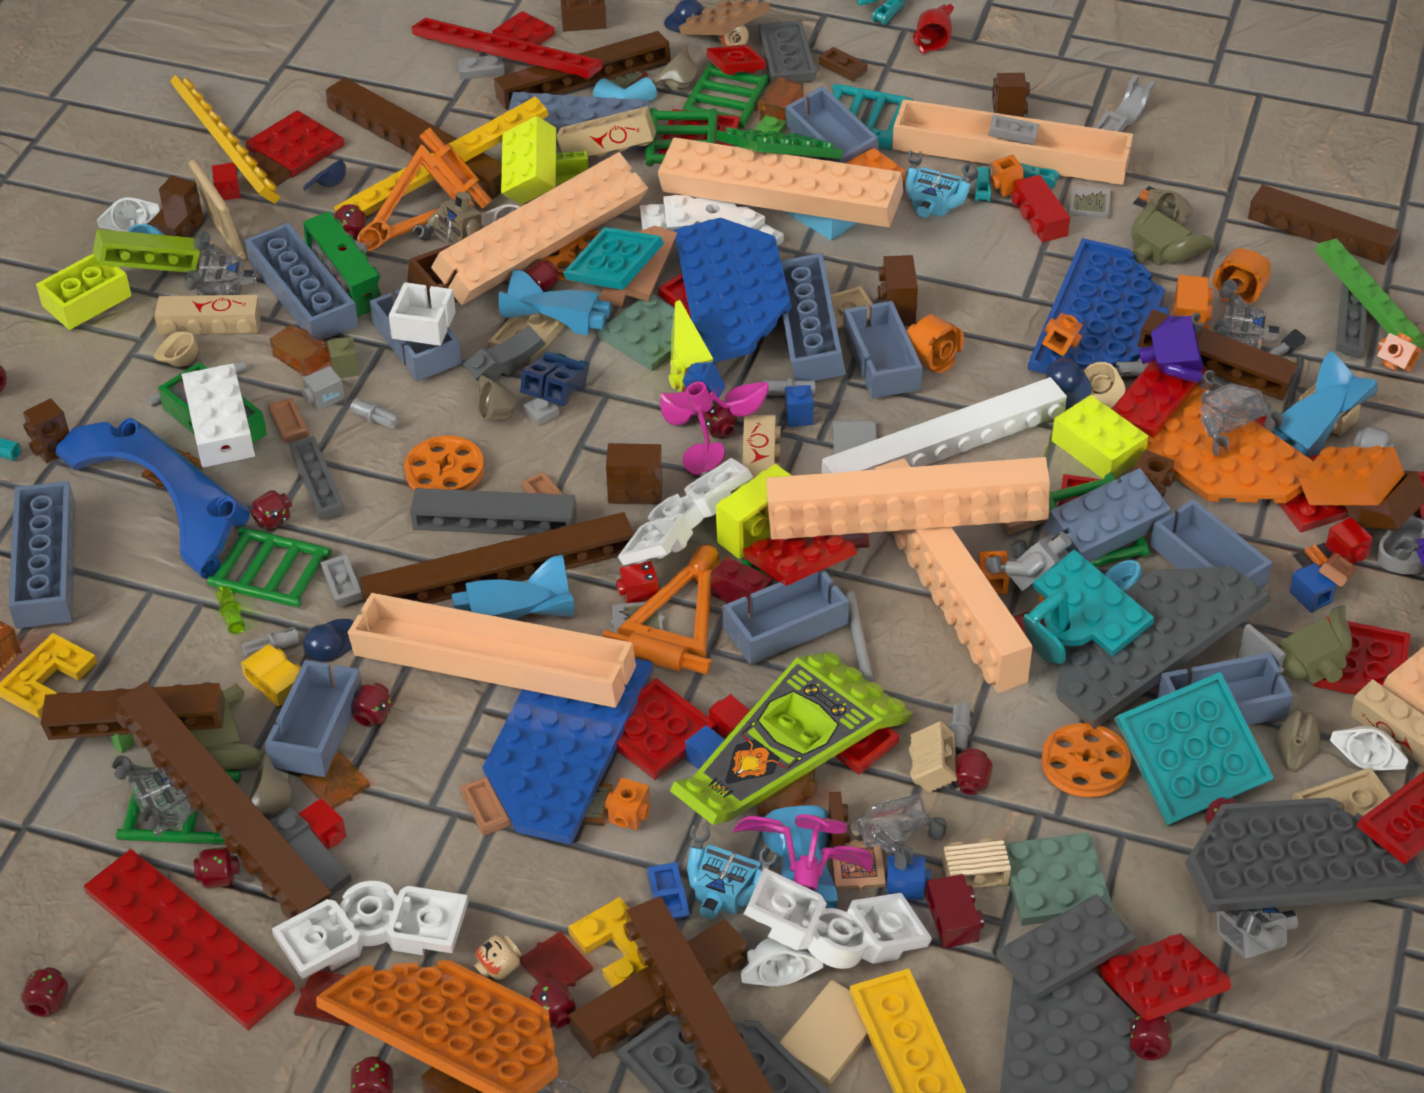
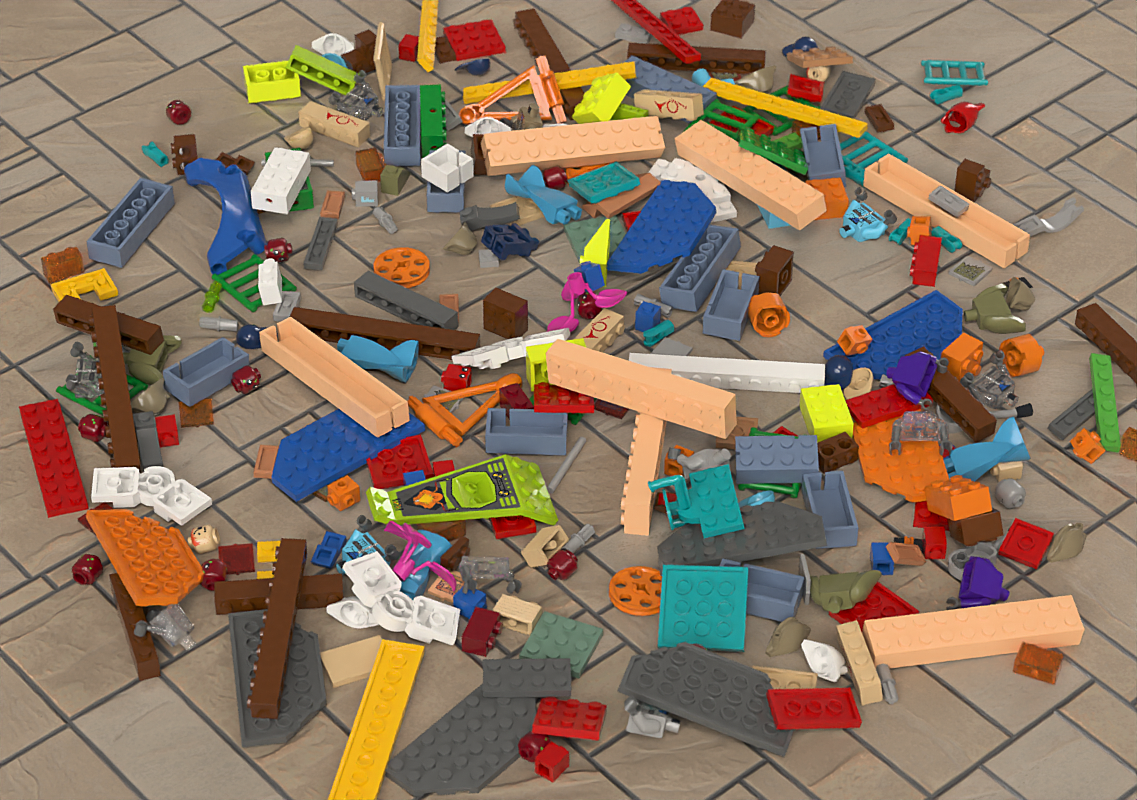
camera: 30 degrees right, 5 degrees down
(115, 417) = (242, 162): none -> reddish brown slope
(271, 673) = (204, 334): yellow brick -> none
(302, 557) = (270, 282): none -> white brick
(352, 219) = (461, 98): dark red head -> none
(409, 245) = (486, 125): none -> white hat
(742, 88) = (786, 107): none -> yellow plate
(822, 419) = (658, 332): none -> teal bar
(1188, 1046) = (552, 761): none -> red brick

